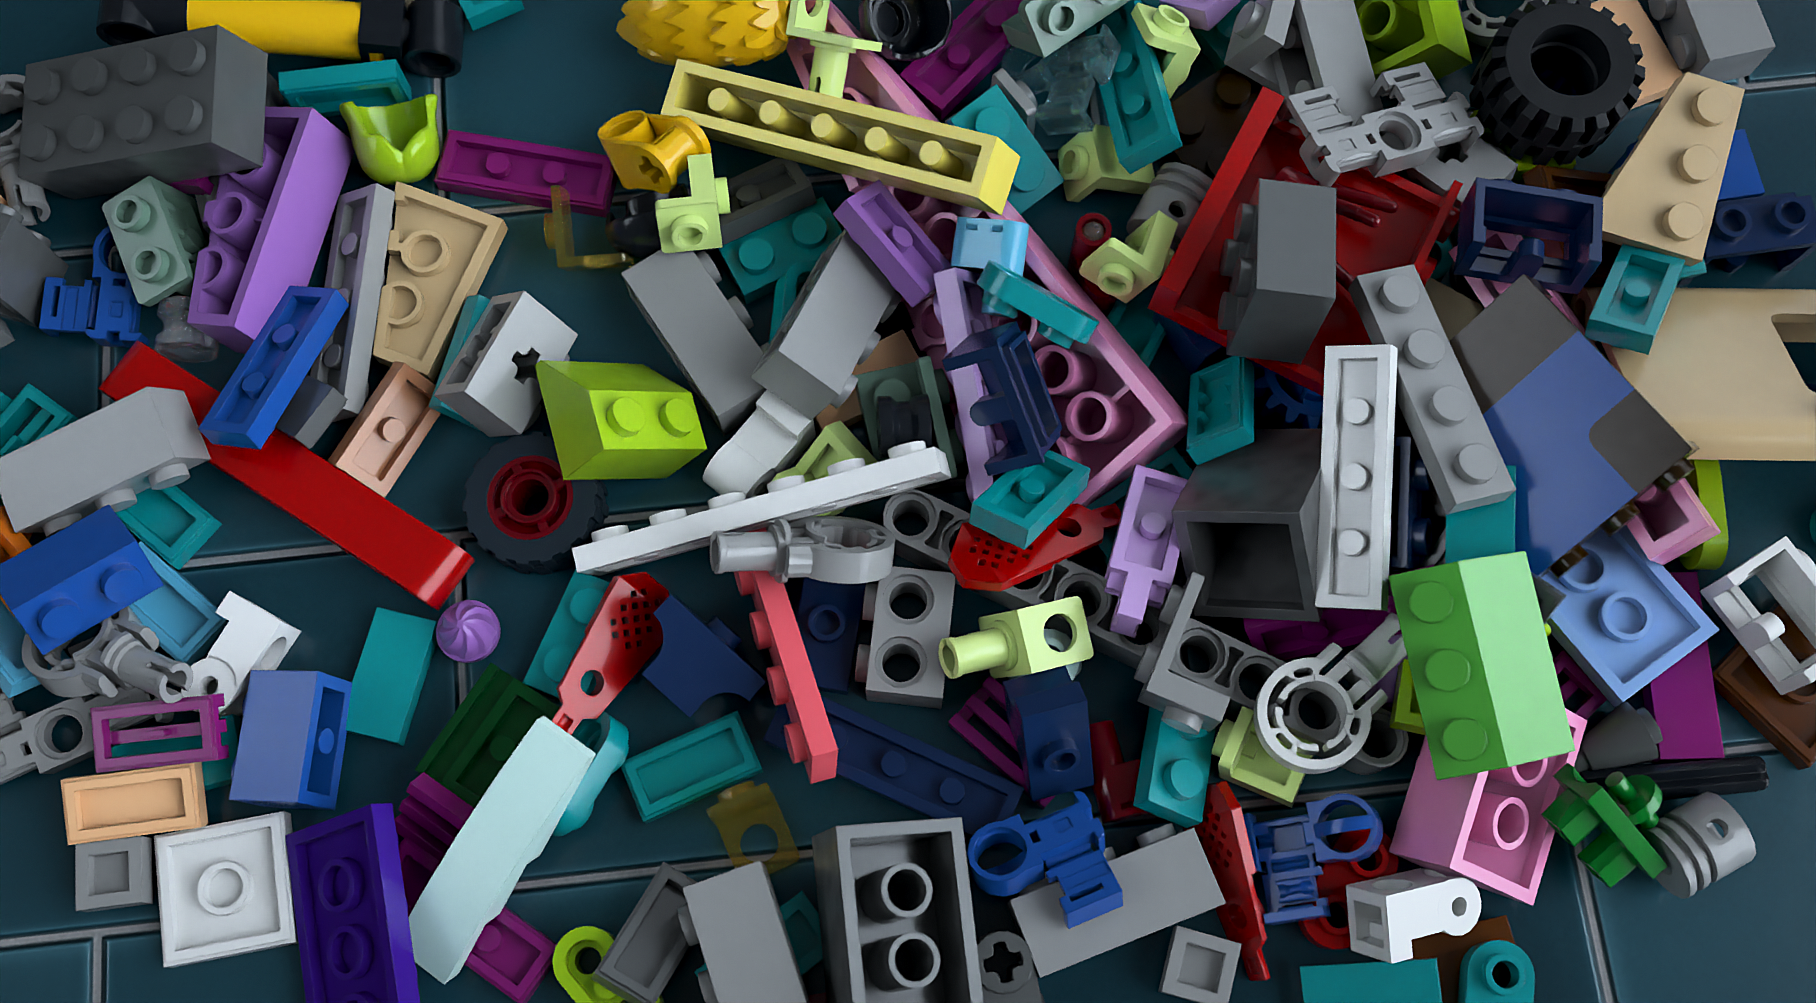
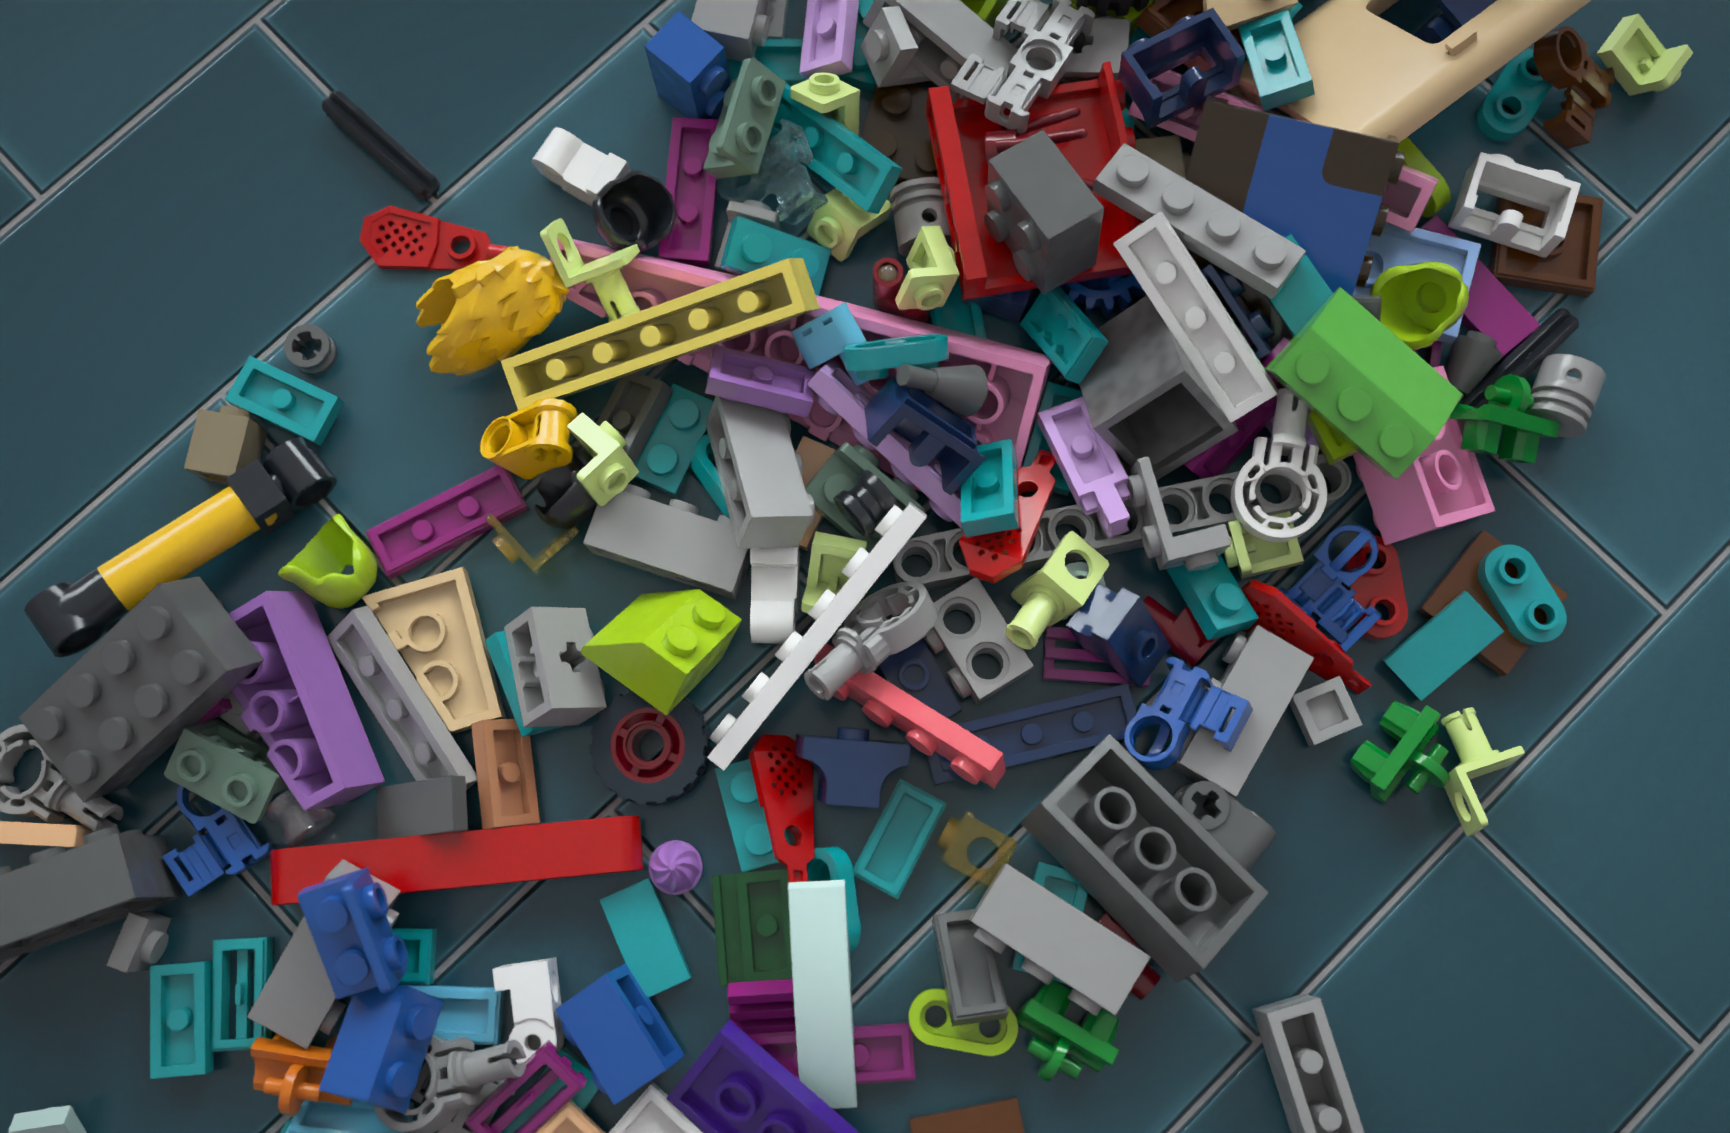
camera: 35 degrees left, 5 degrees up
(128, 456) = (354, 933): none -> blue bracket
(274, 367) = (394, 793): blue plate -> none
(328, 87) = (265, 558): teal tile -> none
(1071, 377) = (956, 387): none -> dark grey cone
(1406, 906) = (1423, 573): white leg -> none
(1605, 633) = (1421, 301): none -> lime hair

